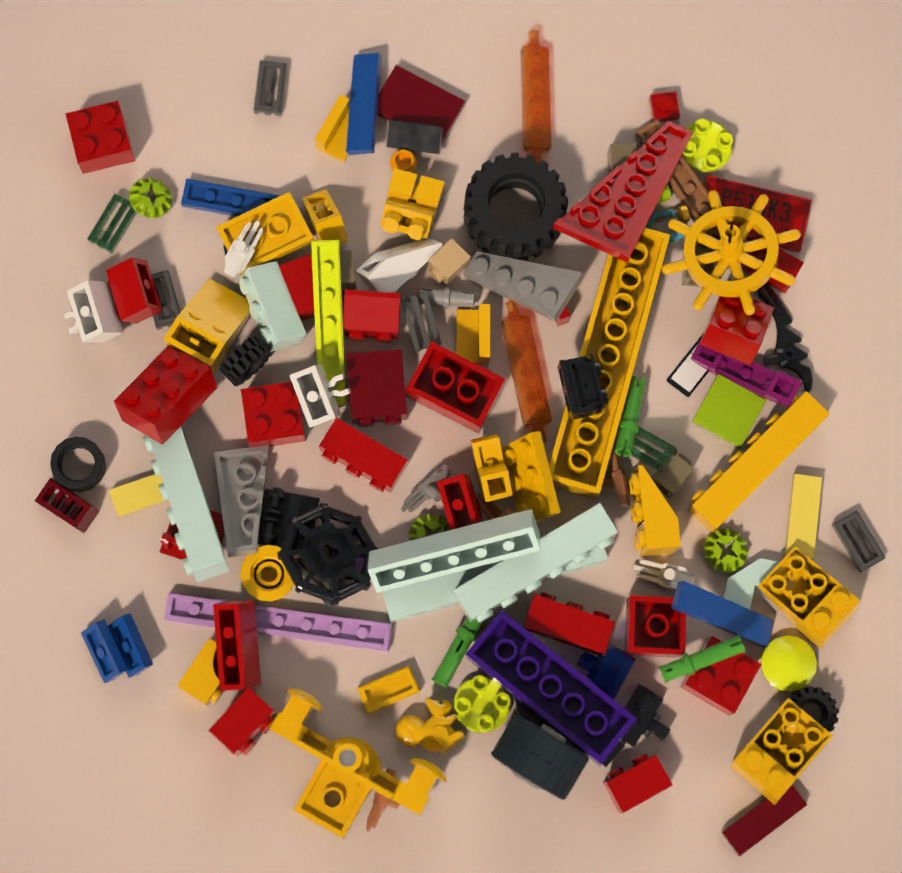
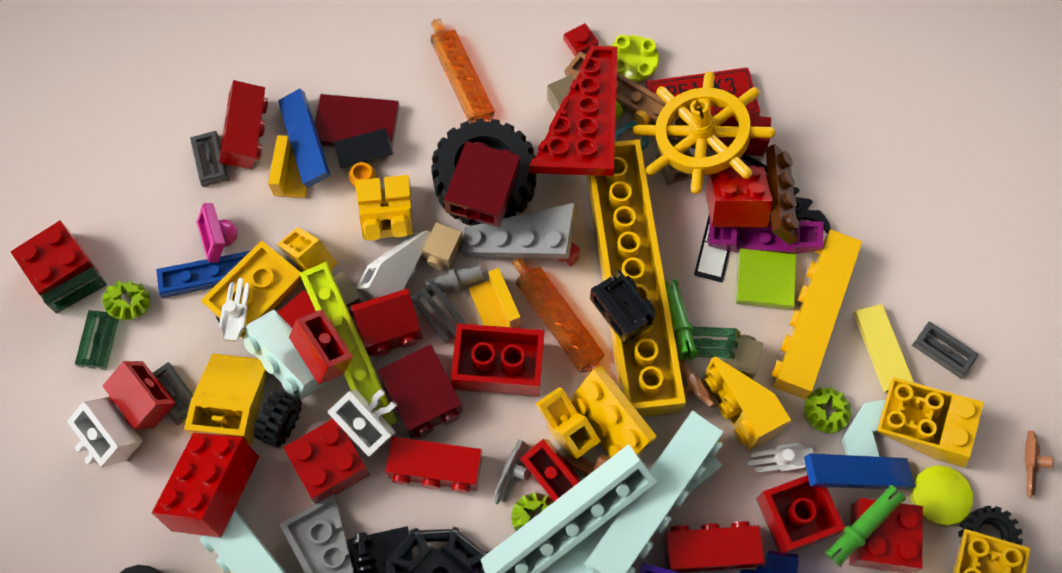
camera: 15 degrees left, 10 degrees down
(108, 170) = (74, 290): none -> clear green tile
(249, 165) = (214, 232): none -> dark pink tile
(304, 314) = (320, 346): none -> red brick
(313, 69) = (243, 125): none -> red brick
(506, 223) = (482, 183): none -> dark red brick
(778, 339) = (781, 188): none -> reddish brown plate
(884, 669) = (1034, 461): none -> nougat piece

